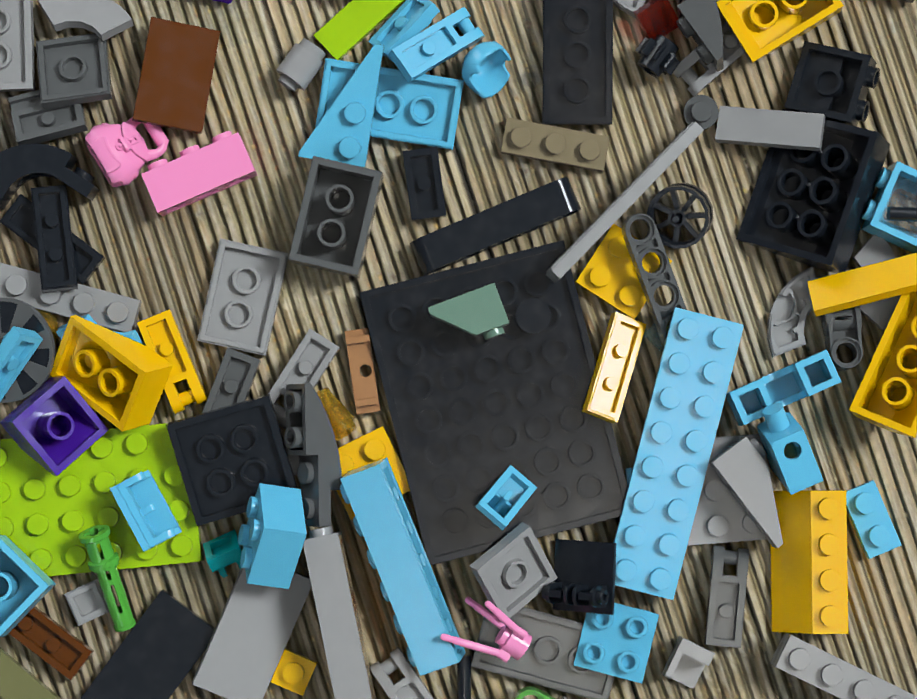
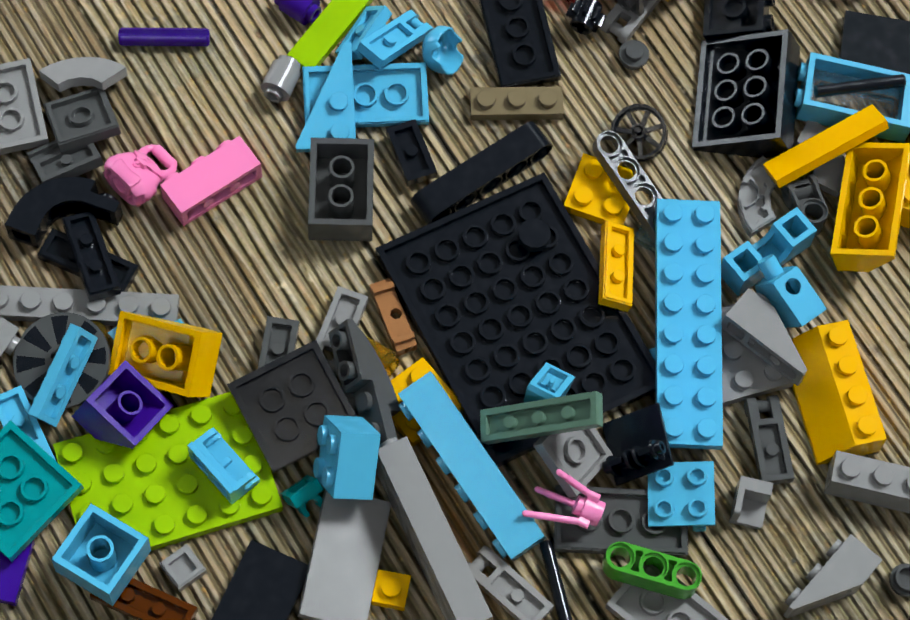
camera: 20 degrees left, 20 degrees down
(106, 561) = (193, 519): bright green pin -> none
(164, 338) = (207, 316): yellow plate -> none
(176, 75) = (173, 107): reddish brown tile -> none
(243, 297) = (271, 276): light grey tile -> none
(474, 312) = (480, 239): sand green slope -> none
(484, 542) = (541, 418): none -> sand green plate
(624, 201) = (587, 130): light grey tile -> none
(770, 128) = (696, 52): light grey tile -> none
(871, 520) = (877, 351): medium azure plate -> none

